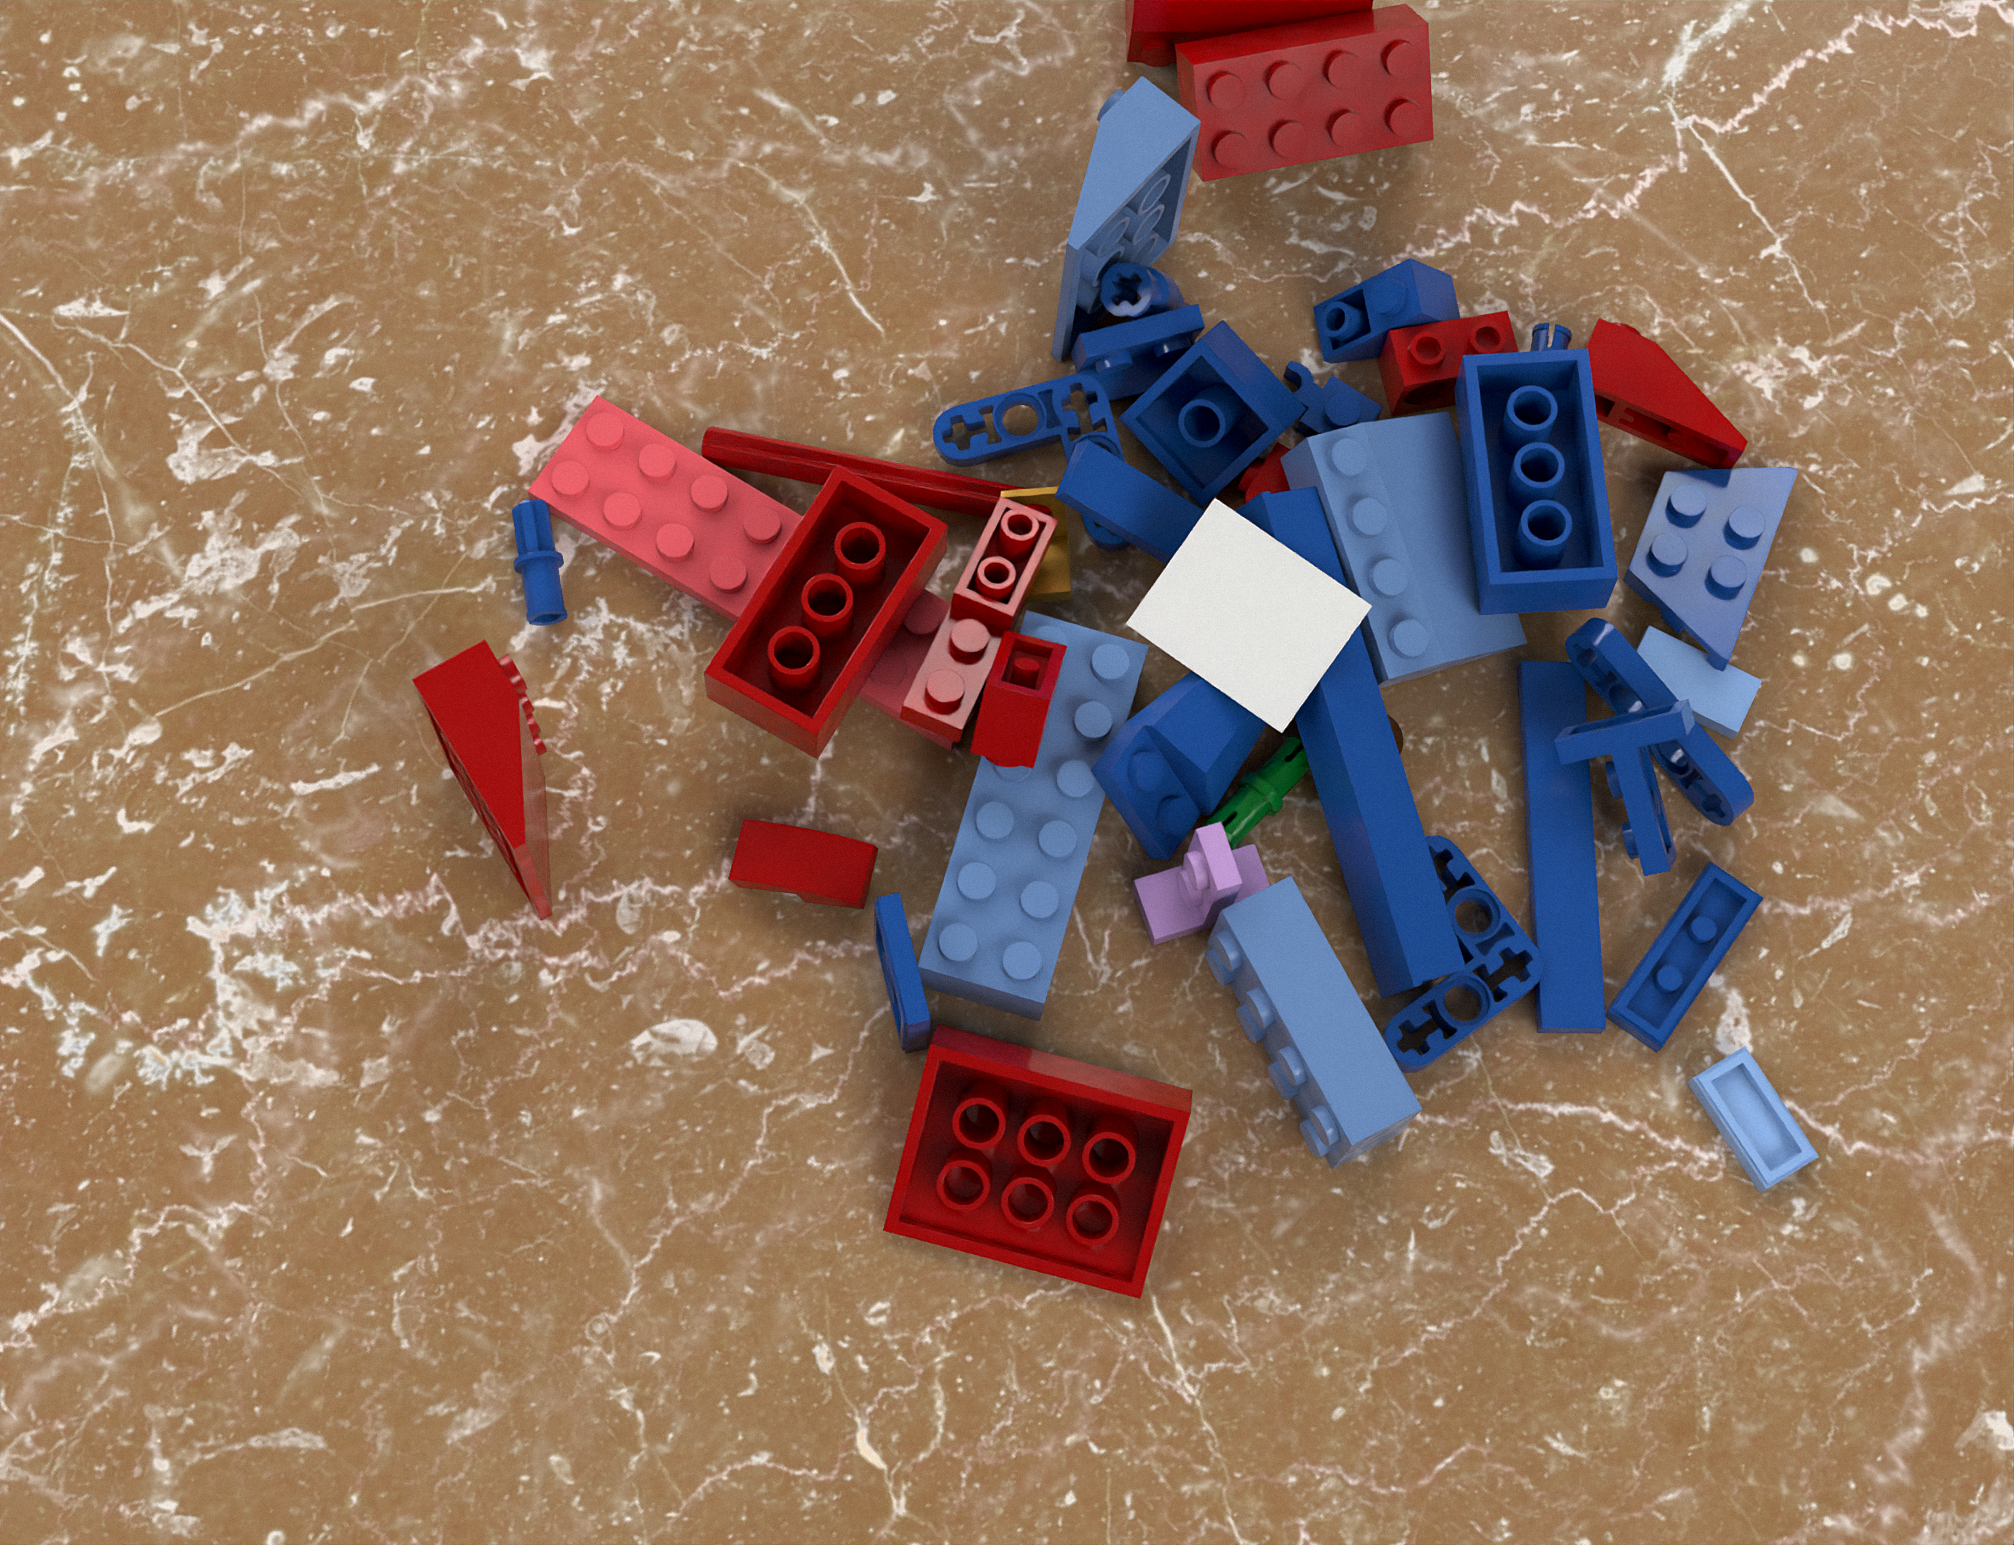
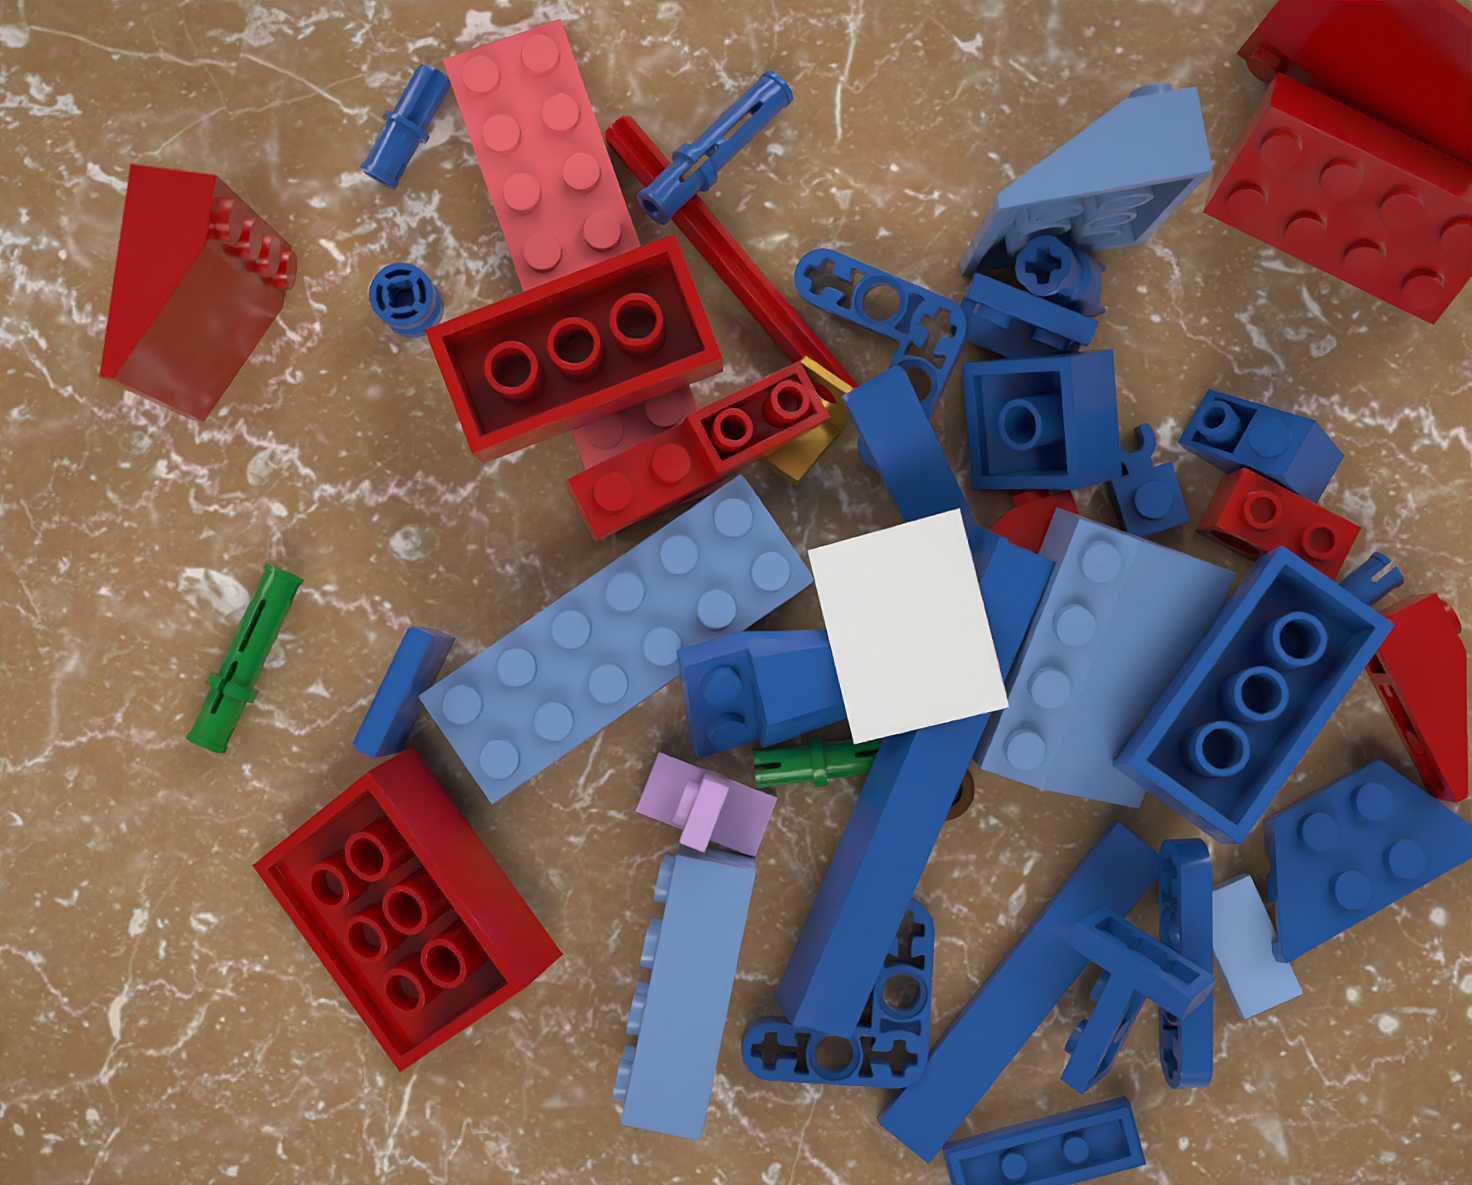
camera: 50 degrees right, 15 degrees up
(651, 703) = (415, 308): none -> blue wheel
(763, 1137) = (244, 660): none -> green pin
(795, 448) = (667, 194): none -> blue pin
(804, 863) = (415, 535): red slope -> none
(1017, 700) = (660, 548): red slope -> none

